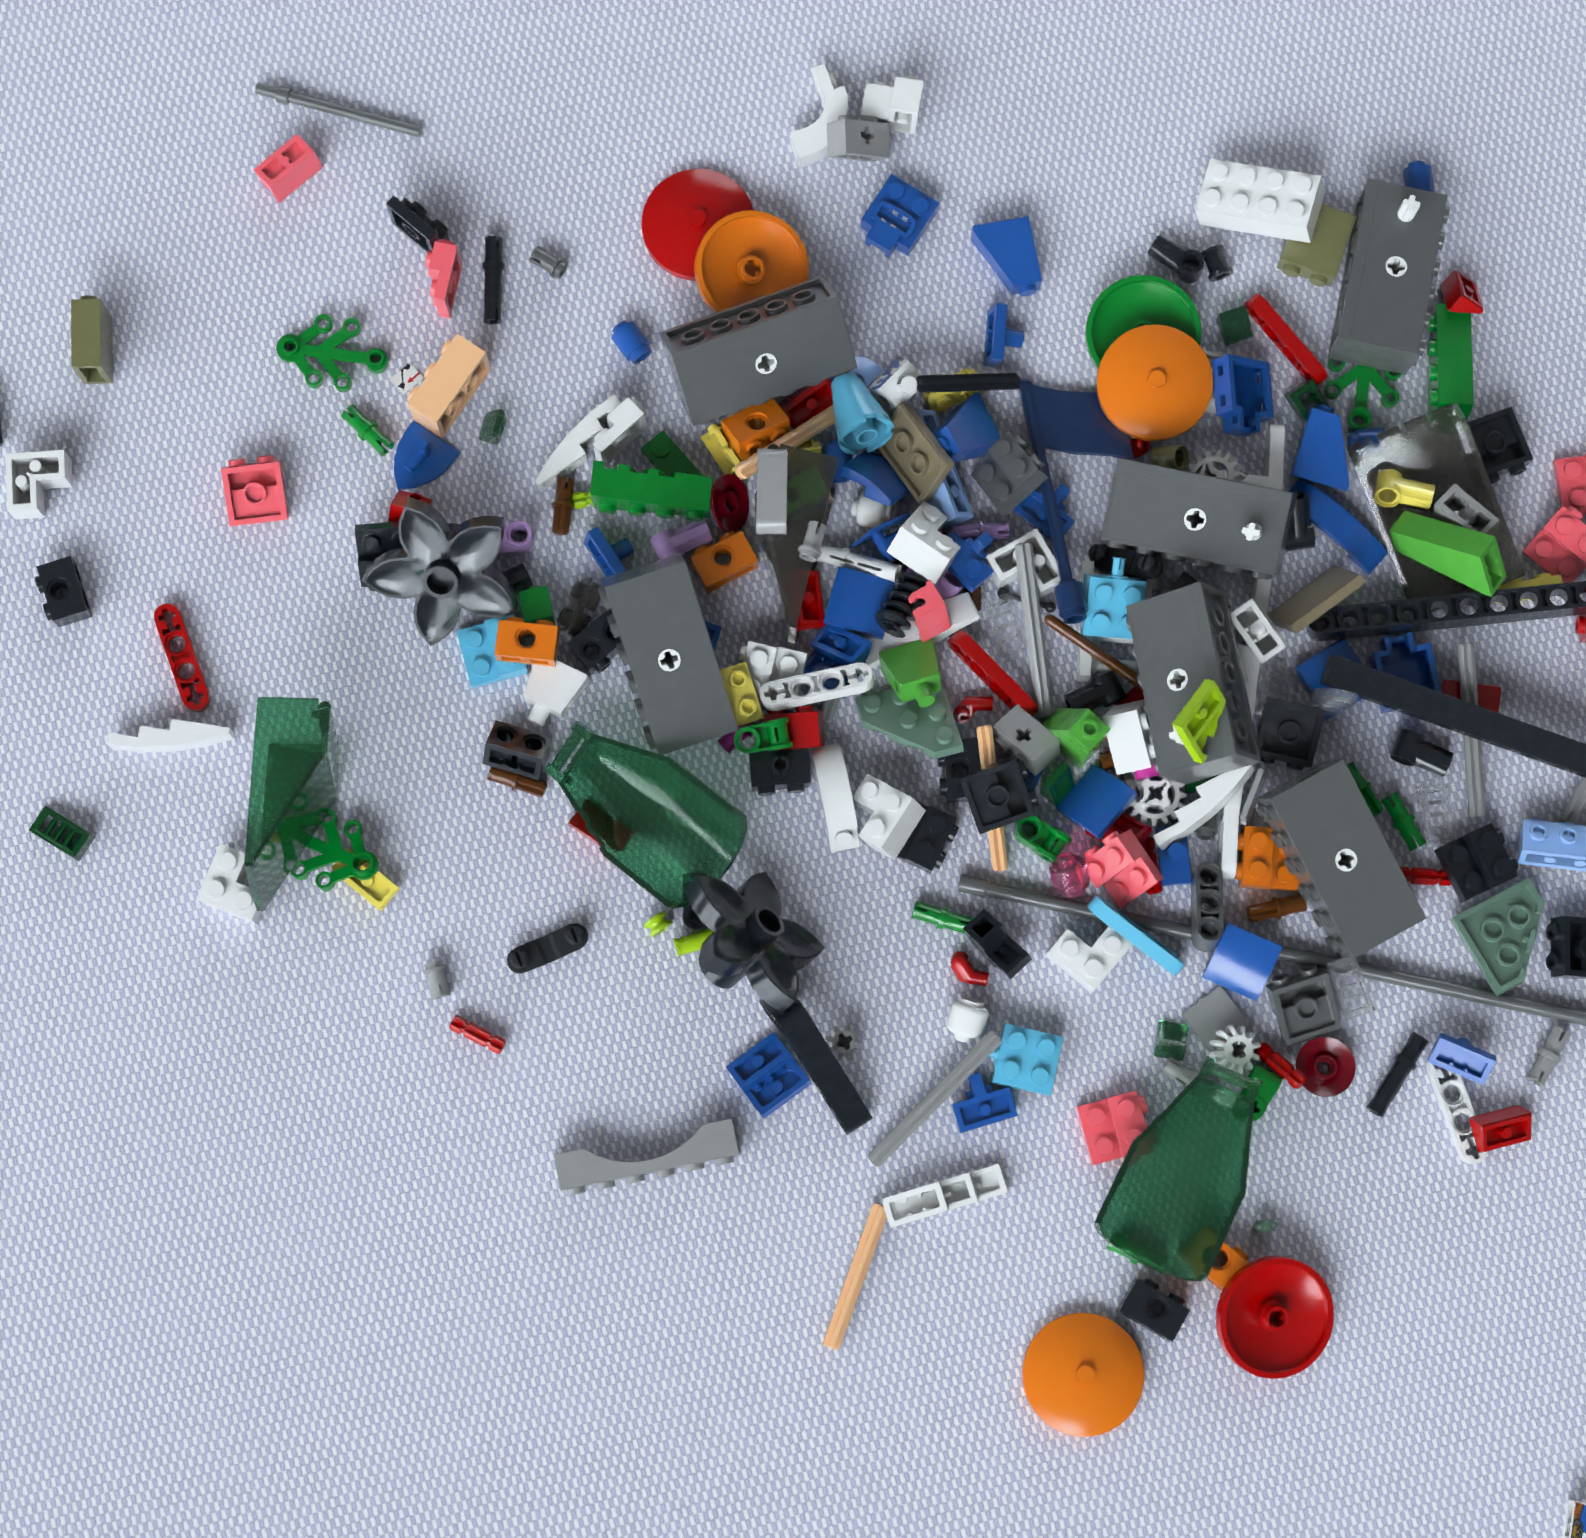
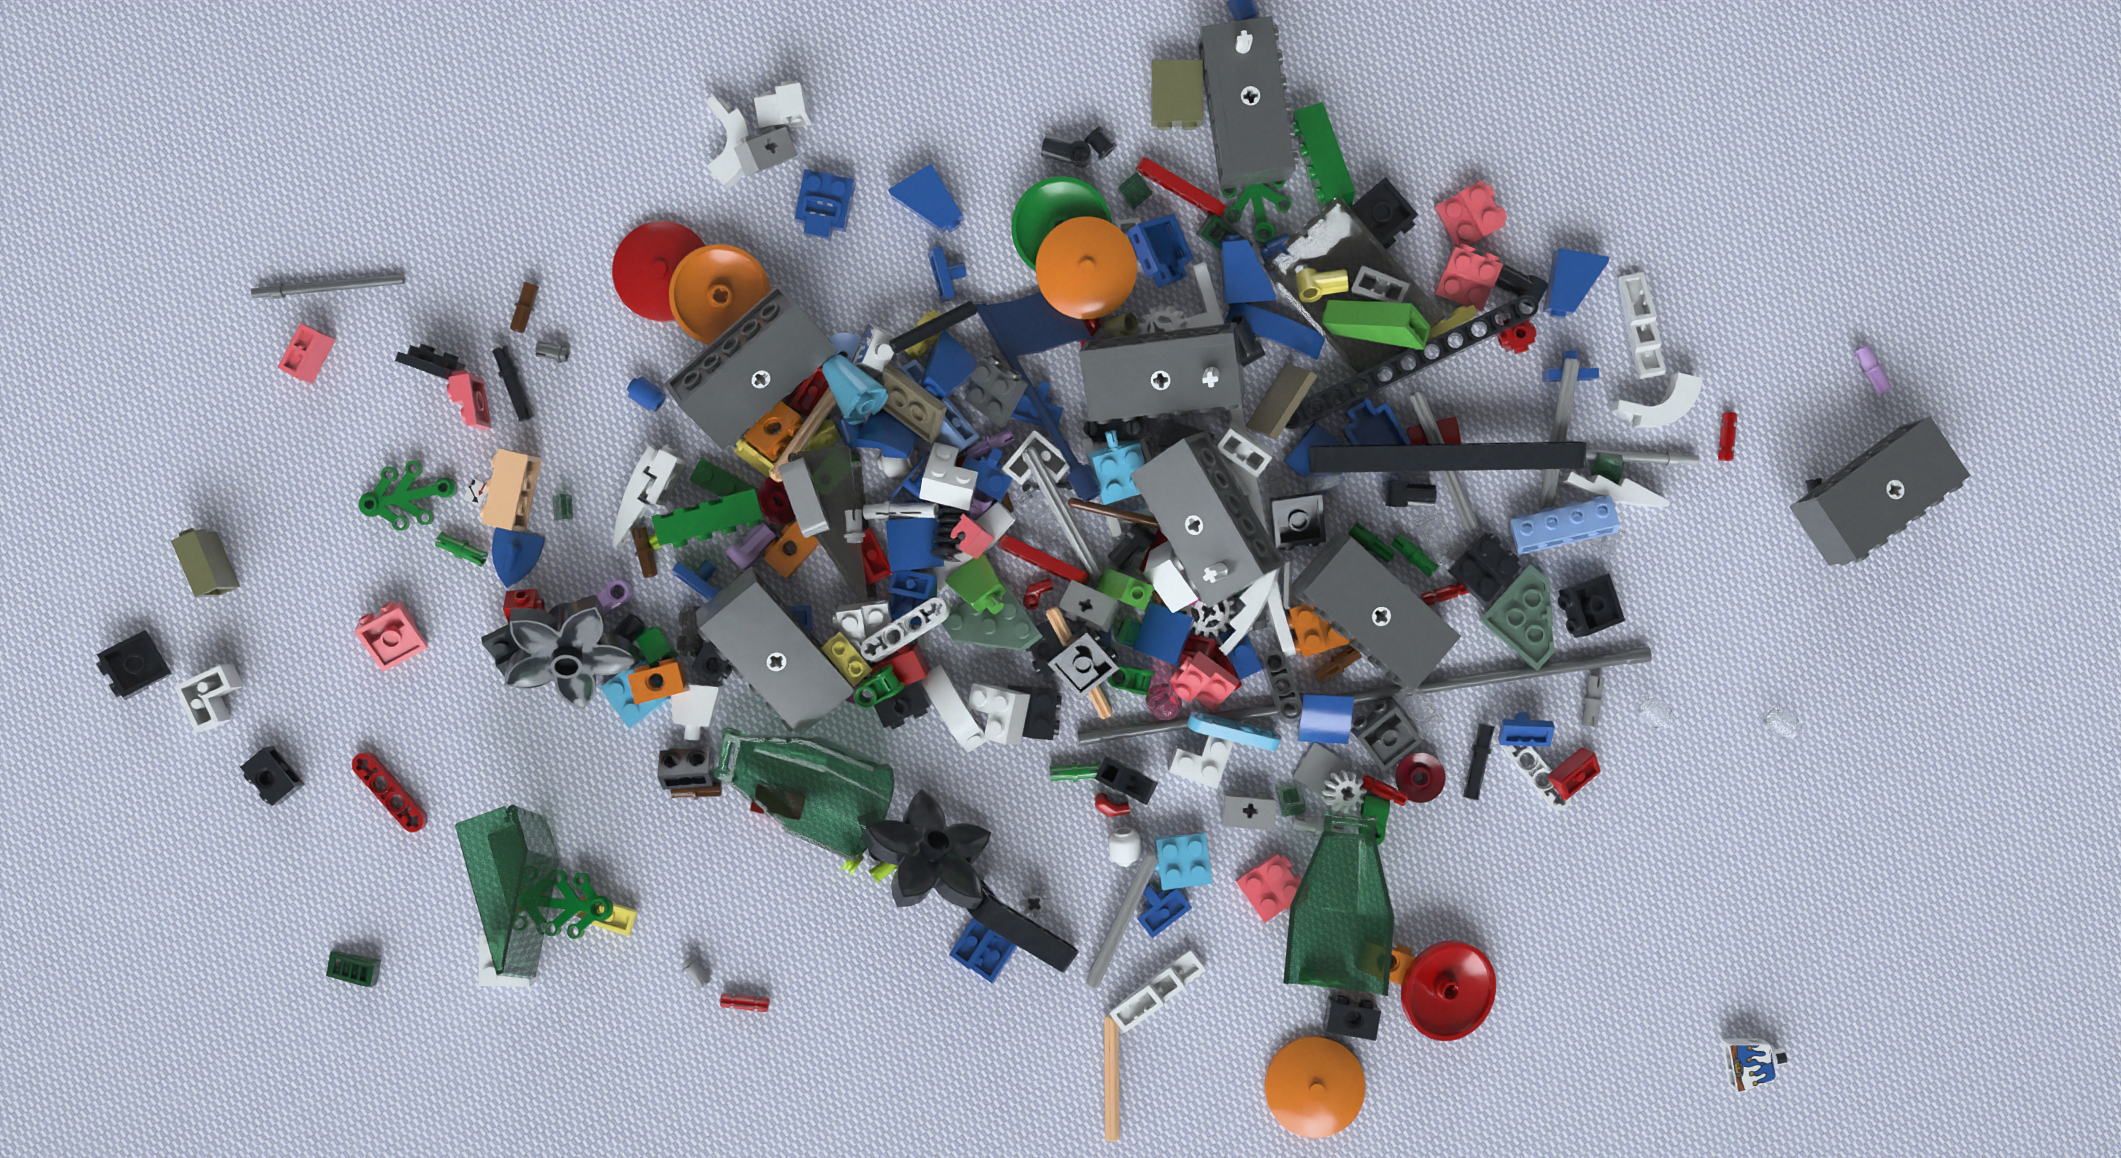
camera: 15 degrees left, 10 degrees up
(180, 736) = (411, 857): white slope -> none
(536, 206) = (524, 307): none -> reddish brown axle
(547, 948) = (772, 915): black piece -> none
(582, 1168) = (871, 1075): light grey arch -> none
(1104, 1034) = (1262, 818): none -> light grey brick
(1200, 719) = (1224, 557): lime wing -> none
(1260, 200) = (1117, 77): white brick -> none
(1265, 1225) = (1416, 919): sand green piece -> none
(1461, 294) = (1312, 94): red slope -> none

